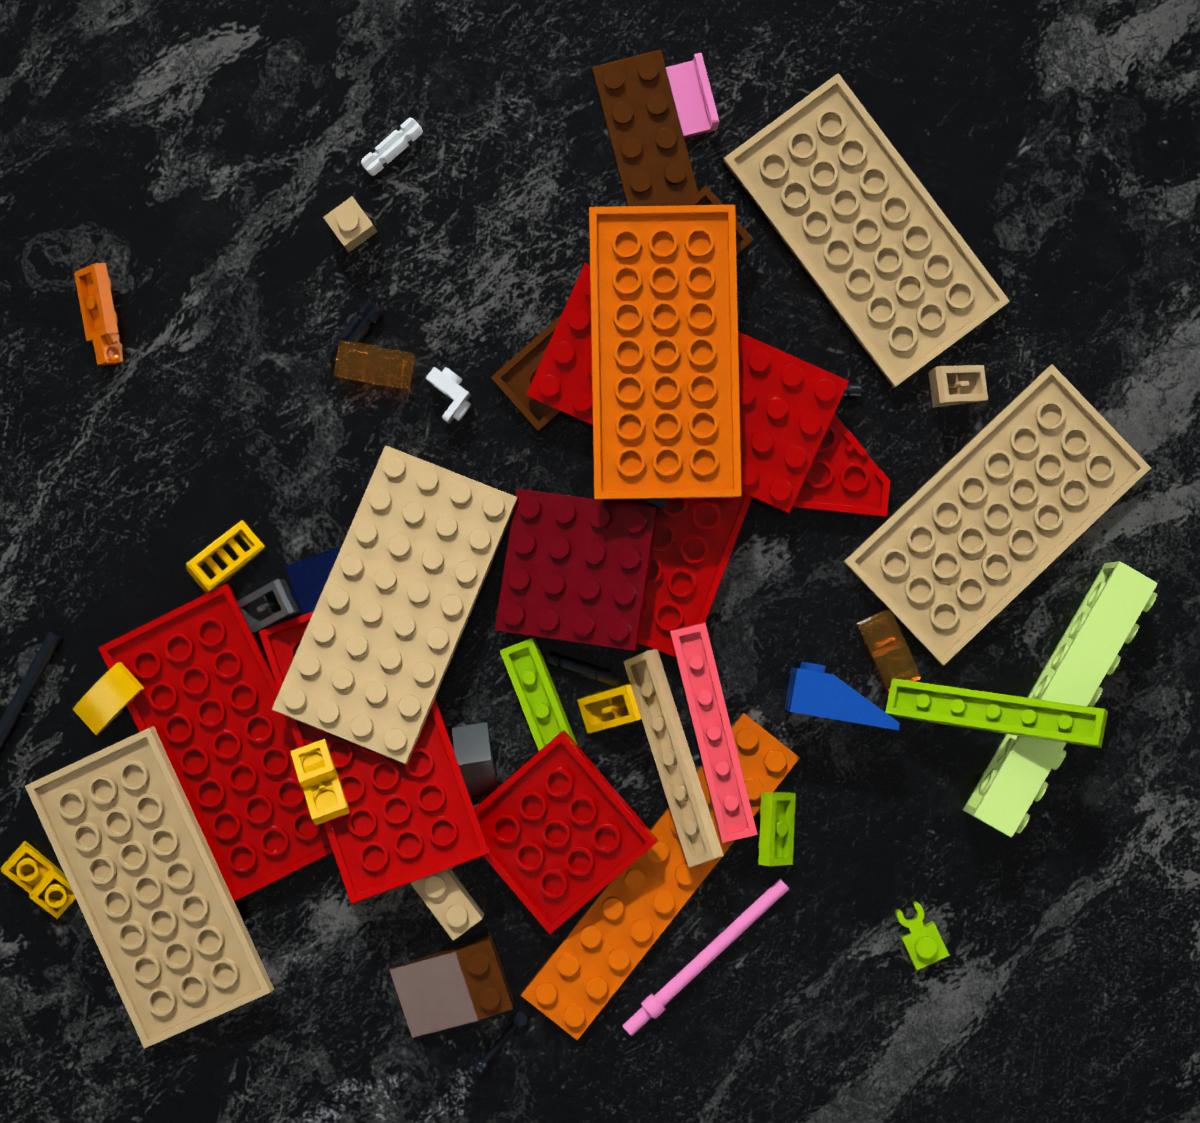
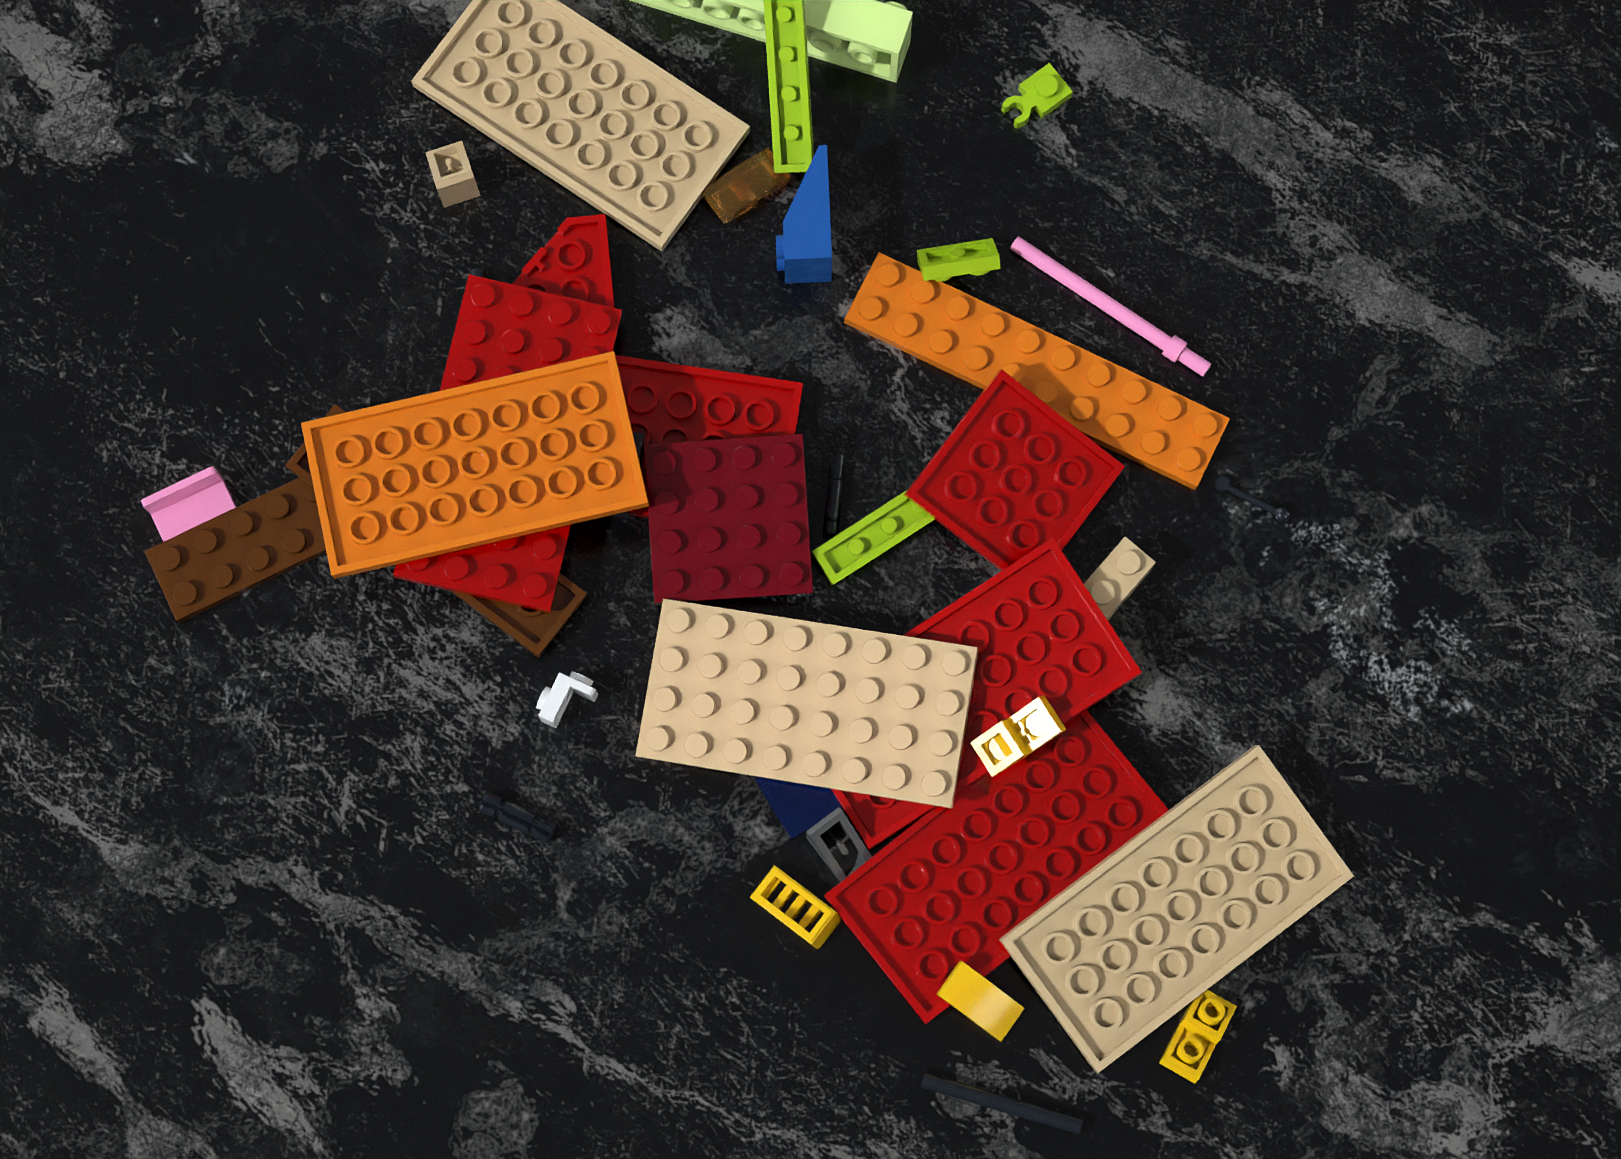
camera: 100 degrees left, 10 degrees down
(98, 313) = (549, 1107): orange hinge -> none
(350, 224) = (397, 844): tan brick -> none
(374, 364) = (549, 785): clear orange slope -> none
(391, 146) = (302, 820): white axle -> none
(452, 987) = (1206, 559): reddish brown slope -> none
(475, 758) = (951, 584): dark grey slope -> none
(609, 708) = (869, 454): yellow slope -> none
(673, 758) = (908, 376): tan plate -> none
(713, 732) = (871, 339): coral plate -> none
(866, 230) = (303, 298): tan plate -> none

